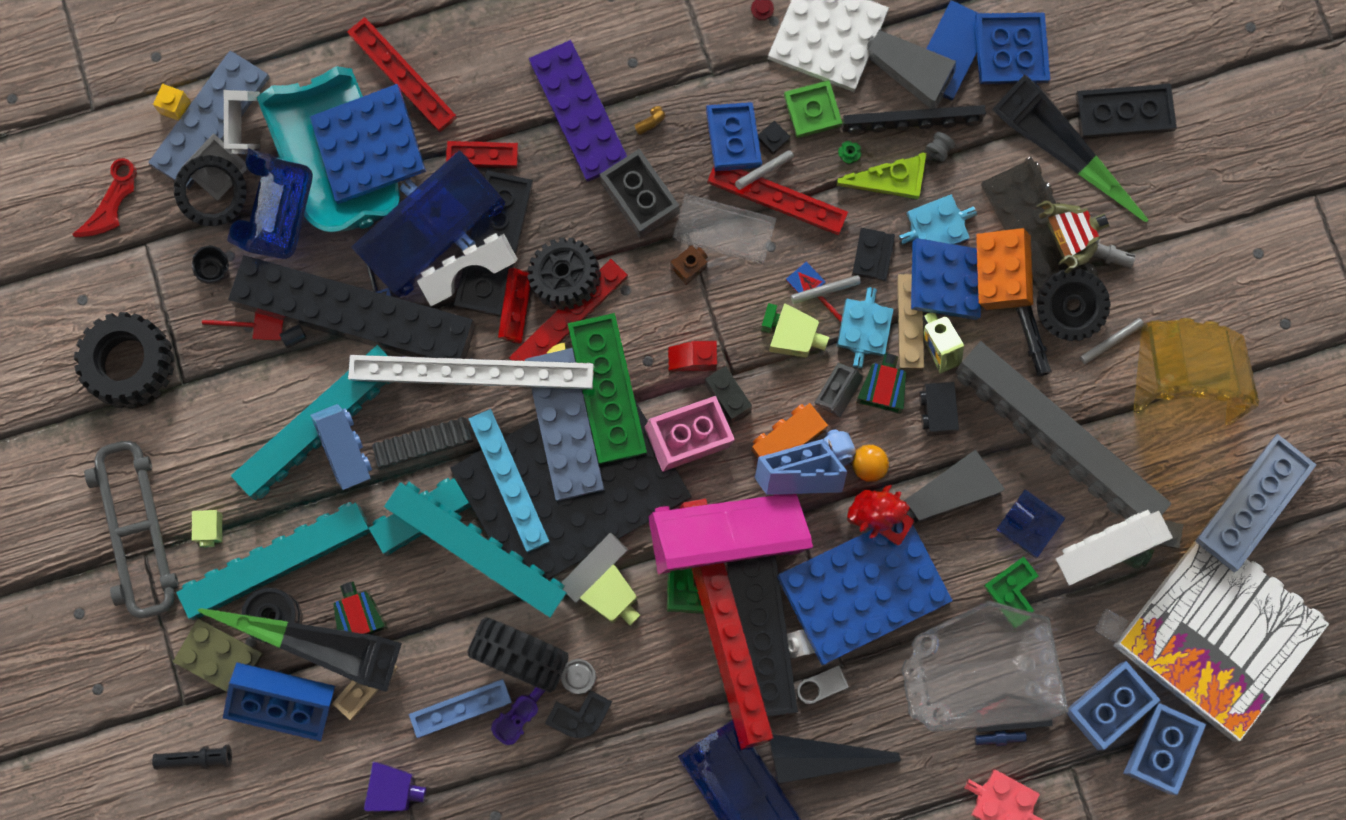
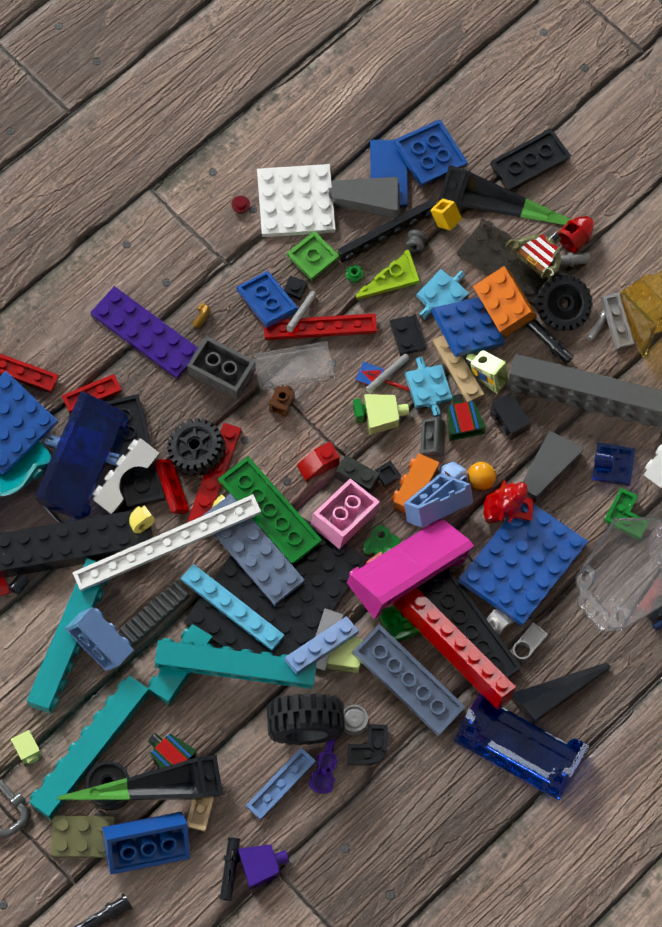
camera: 30 degrees left, 10 degrees down
(339, 801) = (233, 844): none -> black pin
(455, 331) = (141, 519): none -> light yellow piece
(581, 576) = (321, 645): none -> medium blue plate
(660, 663) = (408, 679): none -> sand blue plate
(715, 490) = (375, 544): none -> green plate
(764, 408) = (388, 474): none -> black plate
(991, 131) = (446, 214): none -> yellow brick
(1126, 355) = (617, 321): none -> light grey tile
(1133, 226) = (576, 233): none -> red helmet

